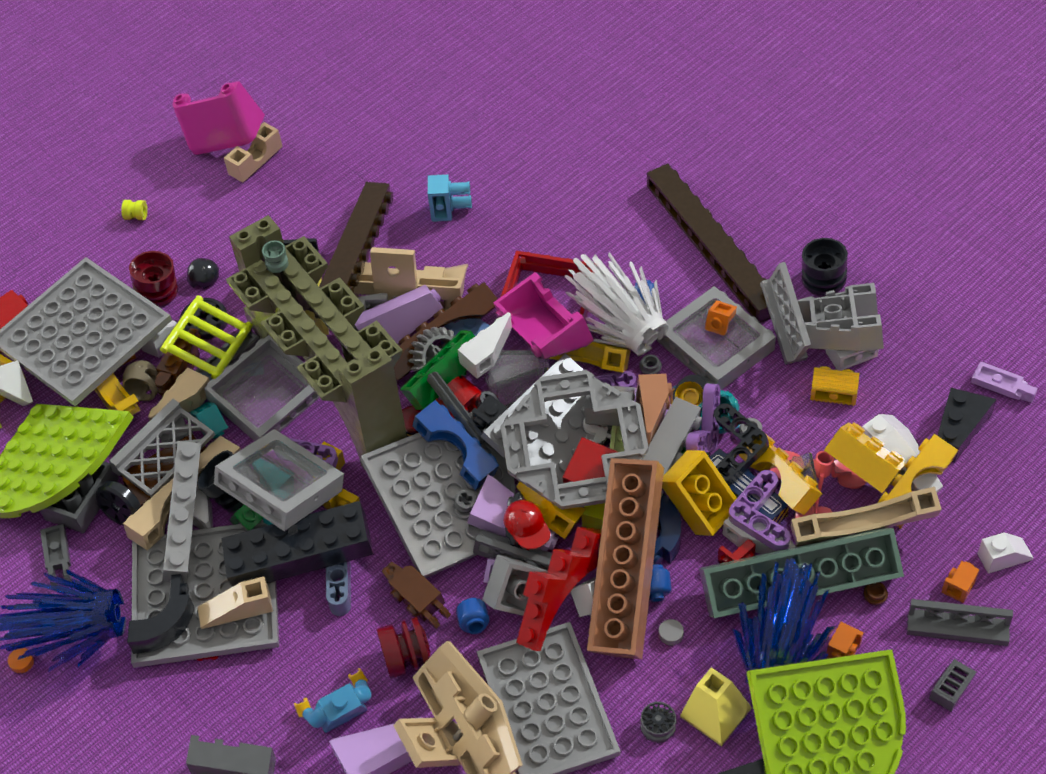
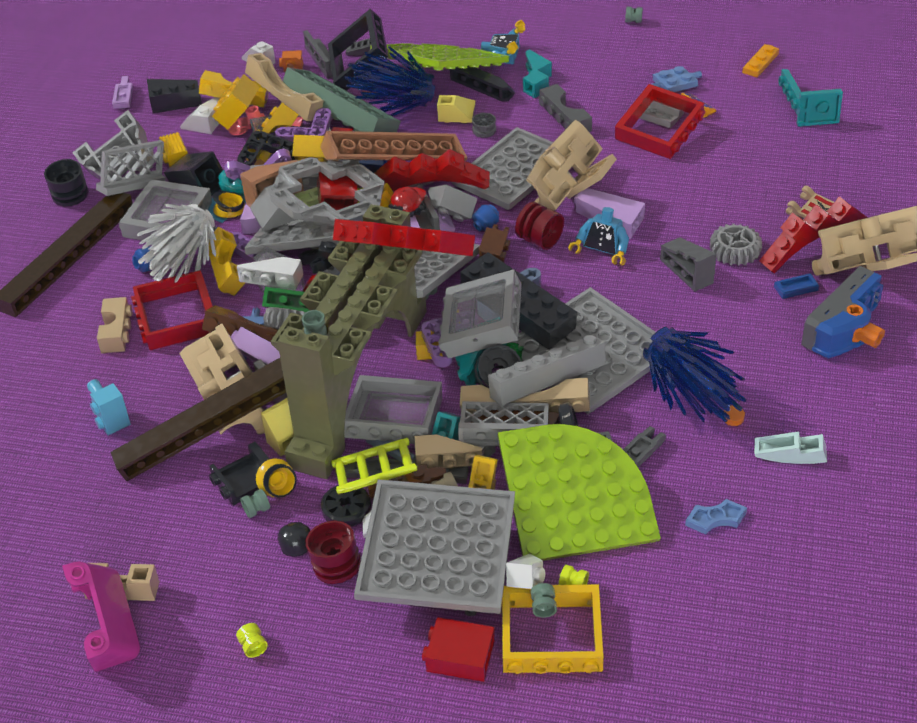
camera: 125 degrees left, 10 degrees down
(168, 625) = (628, 334): black arch -> none
(237, 603) = (588, 307): tan slope -> none
(303, 399) = (403, 237): none -> red arch
(542, 319) = (218, 270): dark pink windscreen -> none
(547, 238) = (114, 334): none -> tan arch
(719, 317) = (151, 198): orange bracket -> none
(764, 384) = (196, 170): none -> black slope
(890, 646) = (367, 22): none -> black window

